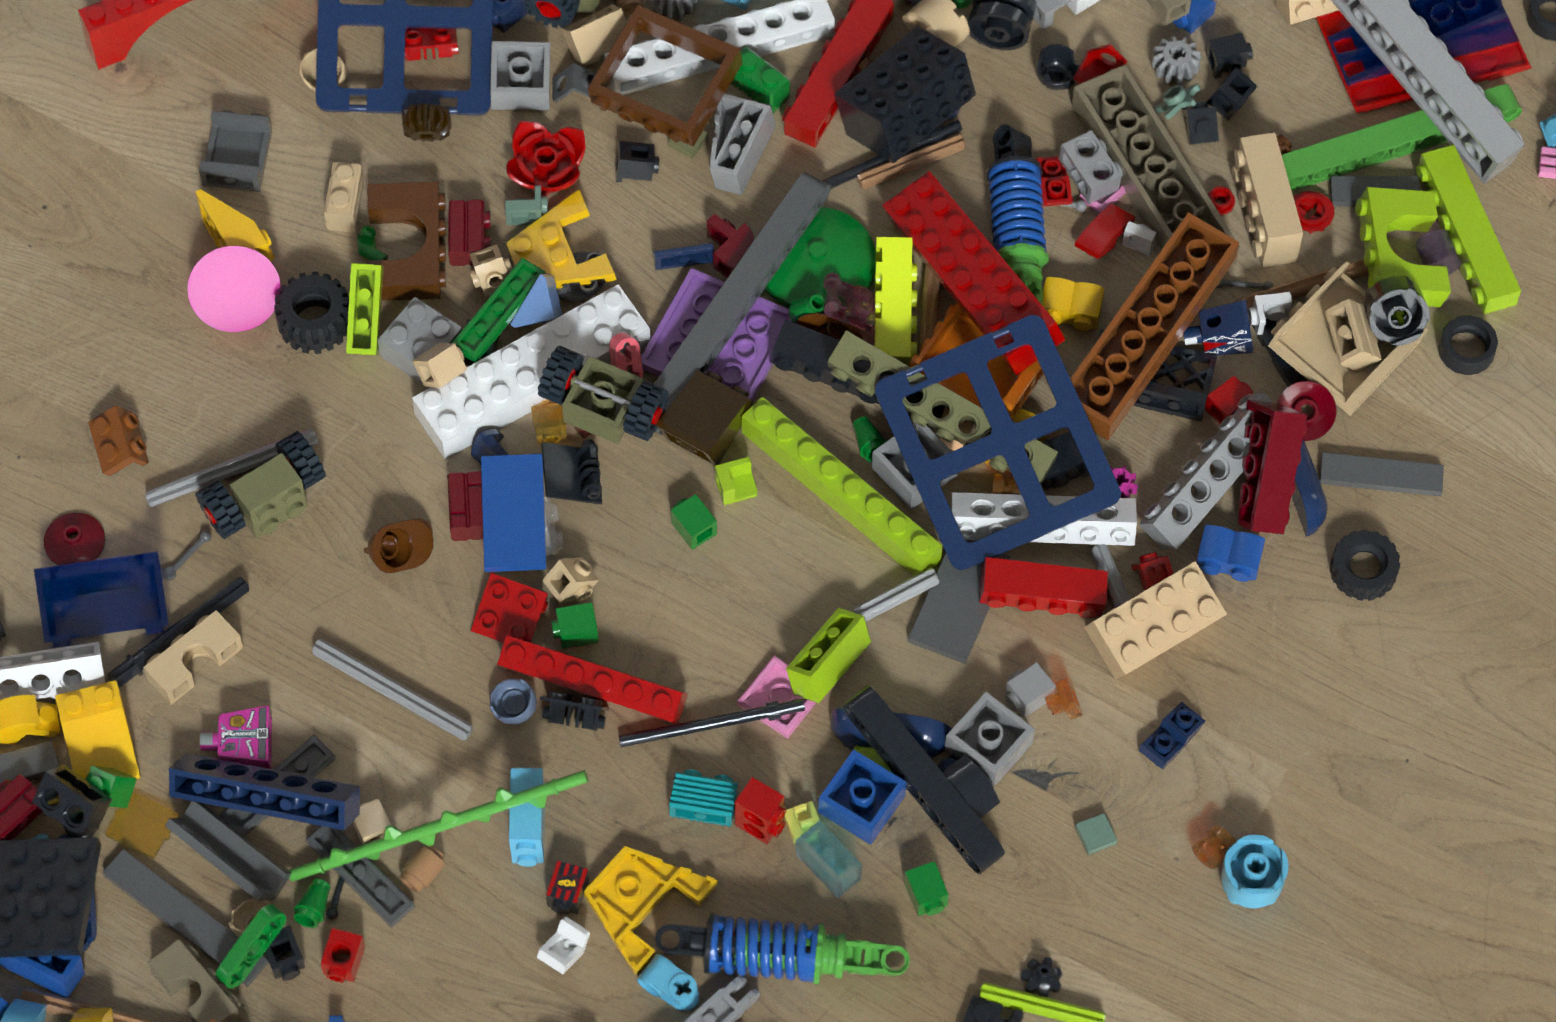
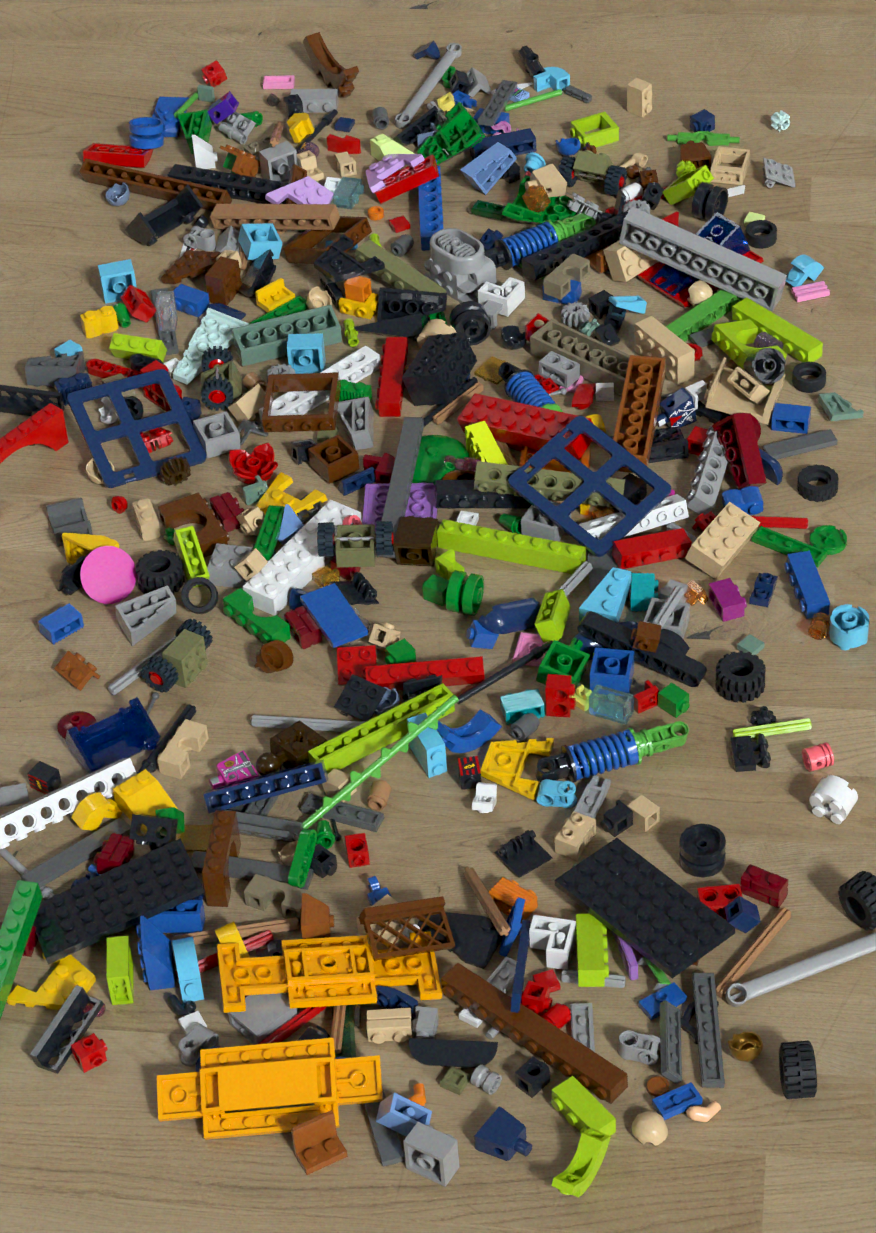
camera: 20 degrees left, 20 degrees down
(134, 342) = (61, 623): none -> blue brick
(164, 856) = (223, 842): none -> reddish brown arch
(180, 261) = (70, 578): none -> black hinge
(256, 382) = (145, 613): none -> light grey wedge
(321, 147) = (119, 504): none -> red plate
(326, 390) = (199, 581): none -> black tyre
(344, 731) = (289, 748): none -> dark brown brick
(420, 488) = (240, 608): none -> green arch
(478, 683) = (360, 698): none -> black hinge
(479, 756) = (378, 731): none -> lime brick
(599, 820) = (471, 735): none -> blue arch
(667, 200) = (333, 459): none -> reddish brown brick
(688, 838) = (524, 726): none -> dark grey brick
(712, 639) = (480, 637): none -> blue brick
(723, 553) = (465, 592): none -> green wheel
(768, 630) = (511, 616): none -> dark blue brick
(804, 742) = (564, 661): none -> green brick
(805, 404) = (468, 517): none -> white plate
(888, 868) = (646, 699): none -> red bracket
(926, 659) = (609, 596): none -> medium azure wedge
(929, 772) = (646, 636): none -> reddish brown brick
(990, 661) = (643, 590): none -> teal brick
(996, 724) = (668, 606): none -> light grey axle
(1000, 110) = (489, 370): none -> clear yellow piece
(1050, 869) = (740, 676): none -> black tyre
(1105, 733) = (727, 599): none -> magenta brick
(1240, 759) = (807, 584): none -> blue brick
(1255, 608) = (782, 522): none -> red axle
(1256, 667) = (786, 545): none -> green tile
(1272, 77) = (631, 303): none -> medium azure slope
(1322, 681) = (828, 539): none -> green tile
(1386, 103) = (699, 292): none -> tan hair
(1394, 417) = (791, 418): none -> blue brick
(1479, 427) = (837, 407): none -> sand green wing

